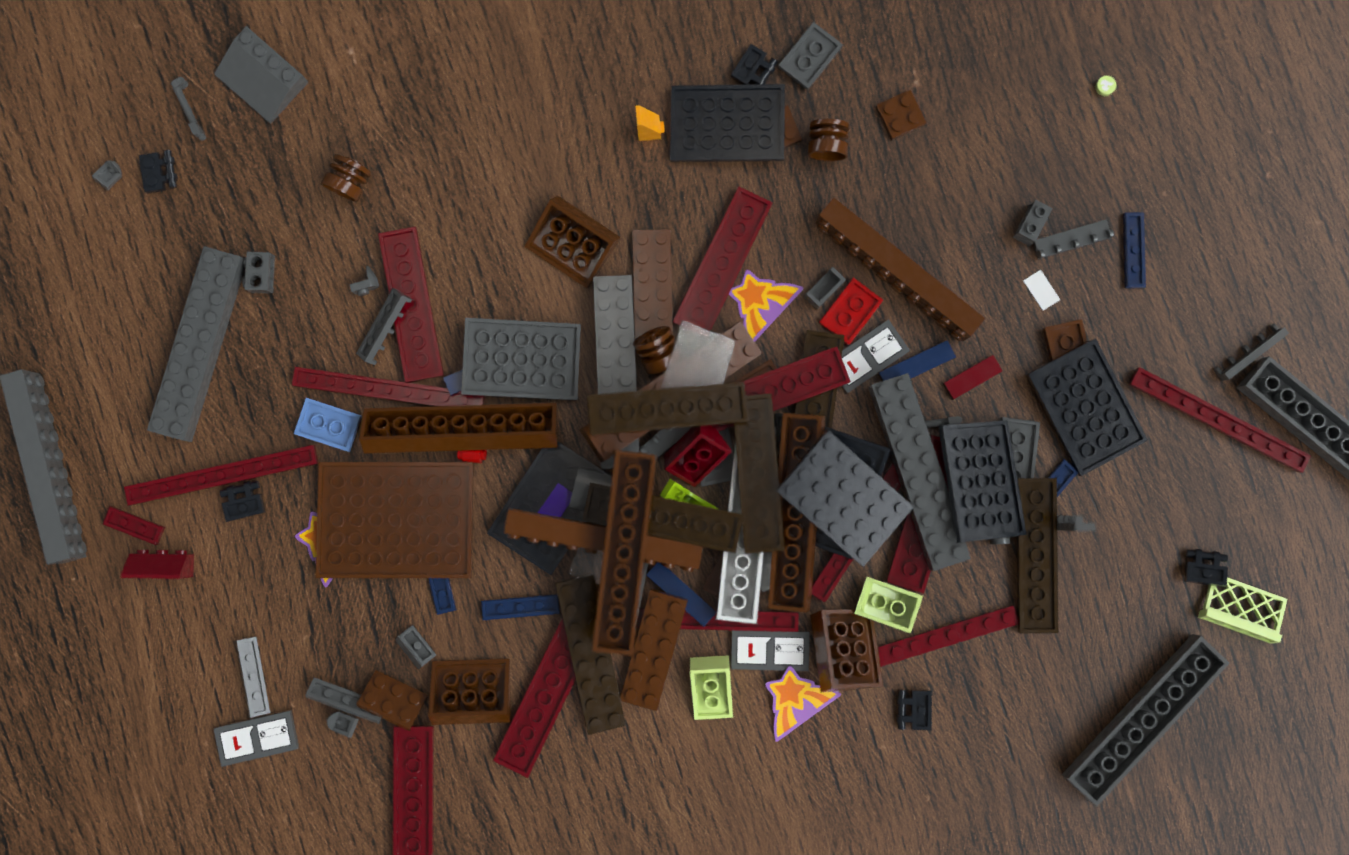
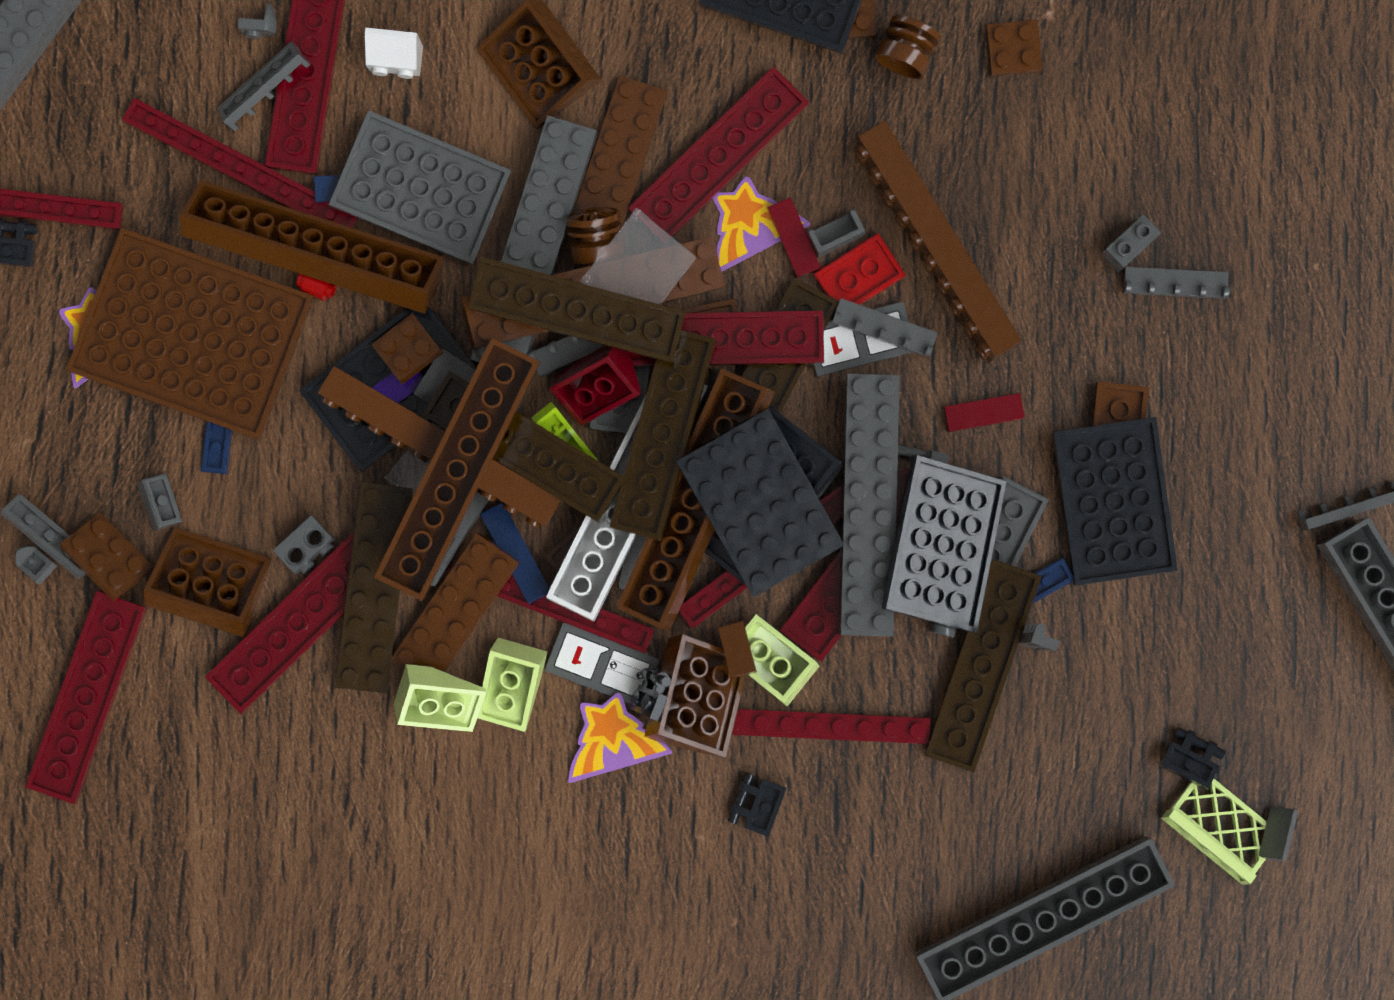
camera: 25 degrees right, 0 degrees up
(327, 424) = (149, 185): medium blue plate -> none
(467, 270) = (393, 52): none -> white slope
(520, 607) = (307, 498): dark blue tile -> none
(526, 639) = (301, 539): none -> dark grey brick
(553, 476) = (407, 348): none -> reddish brown plate
(663, 718) = (437, 700): none -> yellowish green slope
(796, 301) = (793, 238): none -> dark red tile
(814, 662) = (650, 697): none -> black plate
(863, 607) = (737, 649): none -> reddish brown tile
(883, 343) = (884, 328): none -> dark grey hinge
(921, 362) = (926, 371): dark blue tile -> none
(1041, 290) = (1113, 333): white sticker -> none
(1105, 85) = (1290, 102): yellowish green tile -> none
(1134, 250) = (1250, 324): dark blue tile -> none
(1220, 420) = (1279, 578): dark red plate -> none
(1285, 599) = (1278, 834): none -> dark grey slope

